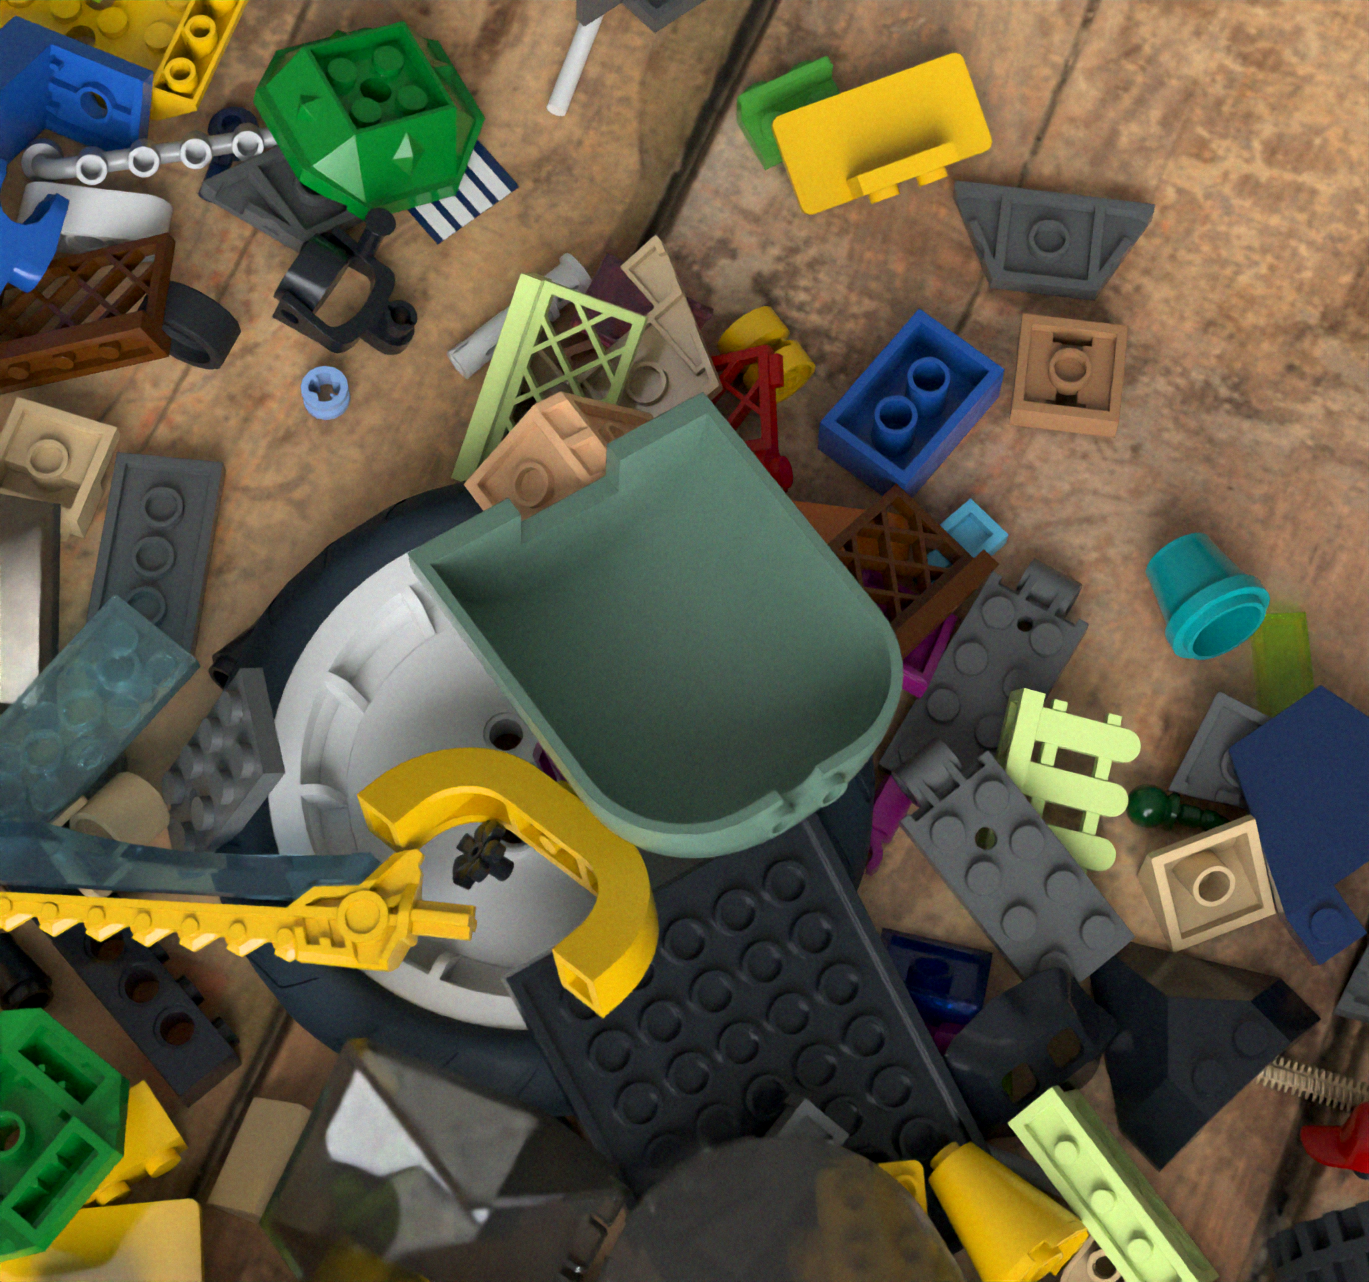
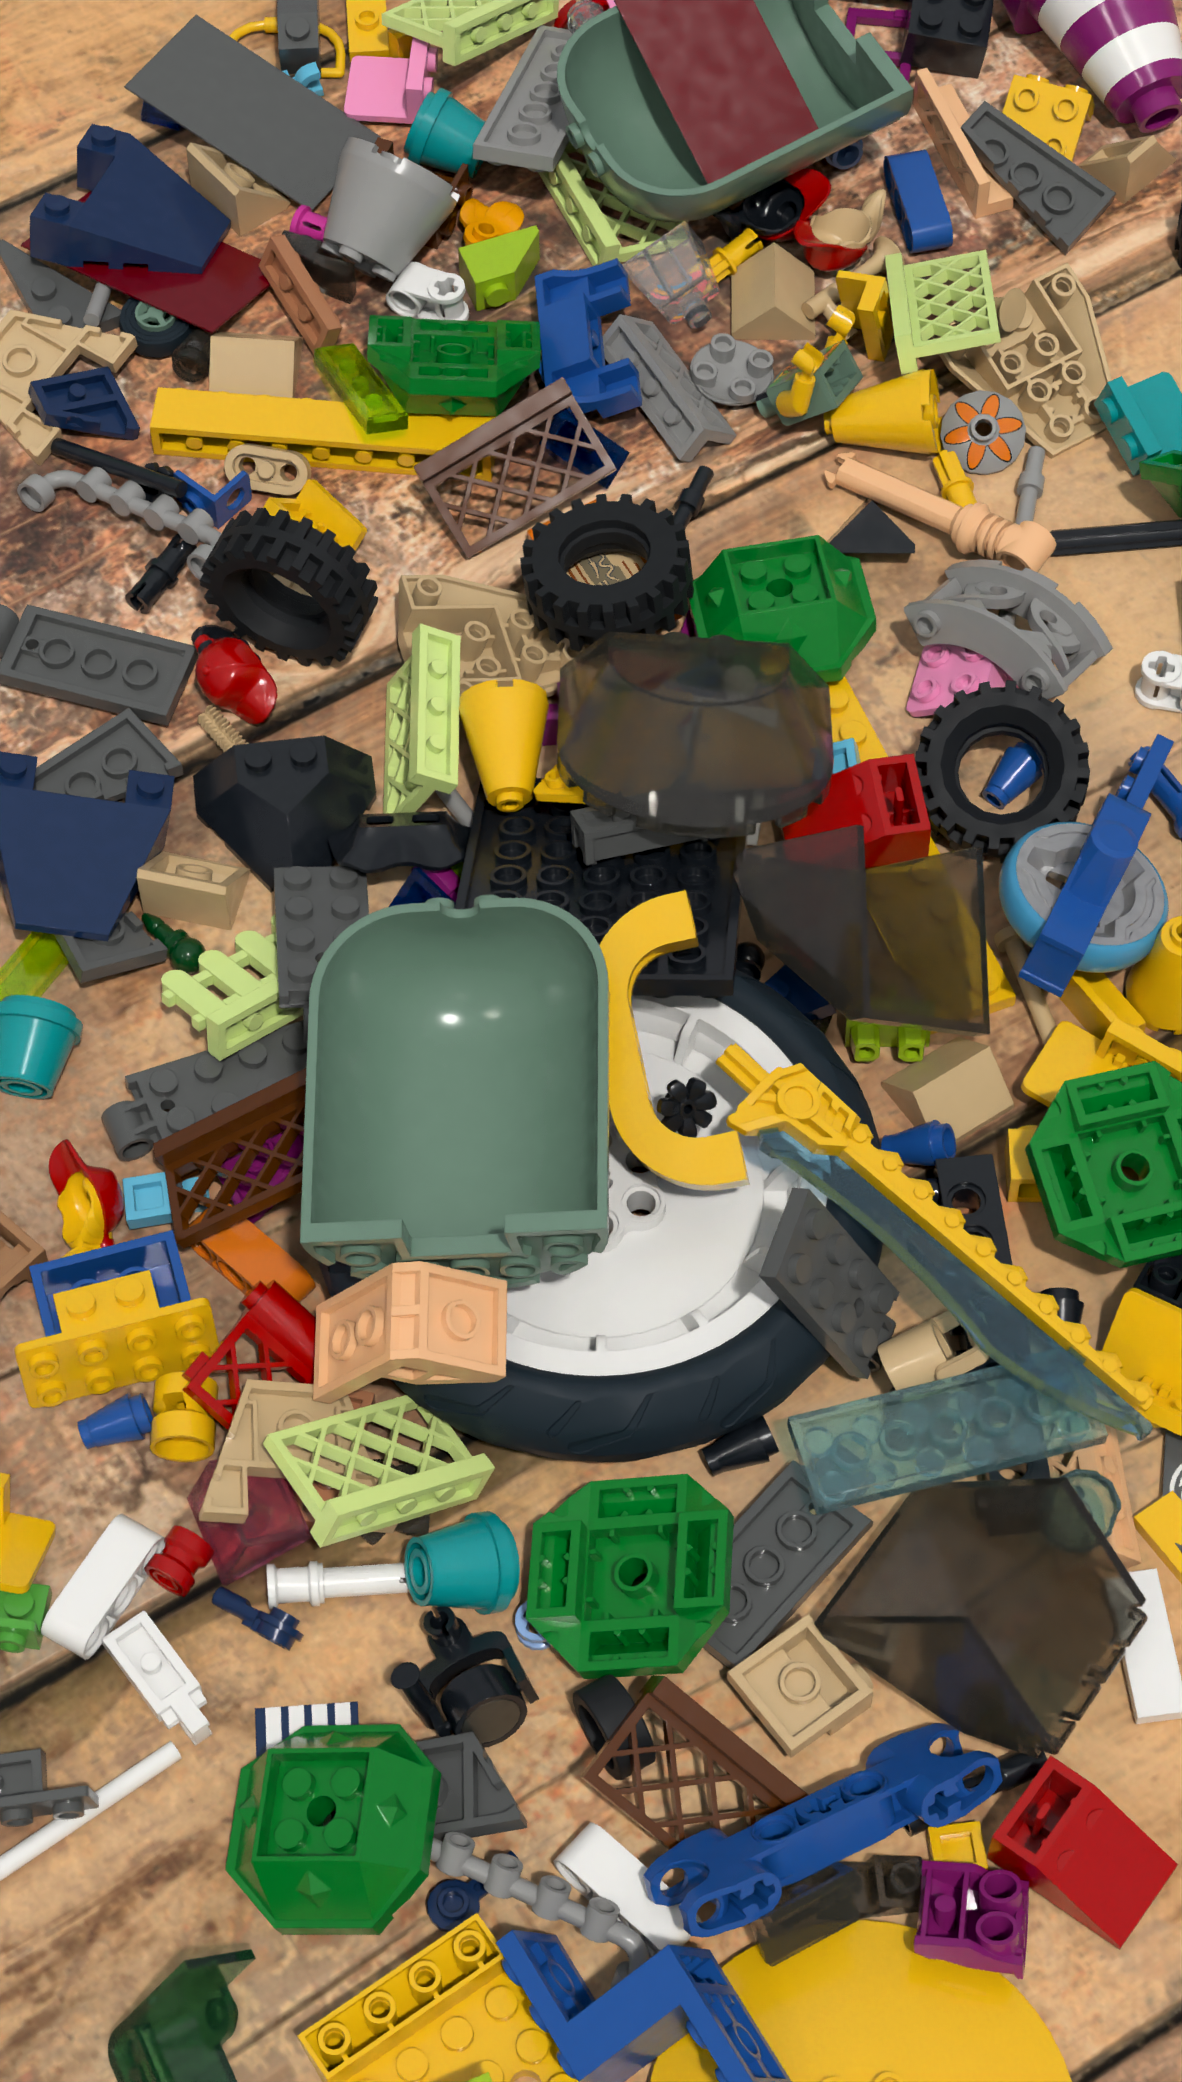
camera: 145 degrees left, 10 degrees down
(261, 402) = (597, 1548): none -> green piece
(264, 1074) = (922, 1143): none -> blue cone
(413, 371) = (464, 1565): none -> teal piece
(546, 241) = (276, 1626): none -> dark blue plate
(613, 148) = (159, 1675): none -> white hinge
(676, 230) = (179, 1560): none -> red wheel
(719, 186) = (102, 1587): none -> white beam
(825, 324) = (117, 1422): none -> blue cone
(885, 367) = (112, 1340): none -> yellow bracket
(1005, 483) = (87, 1199): none -> hair

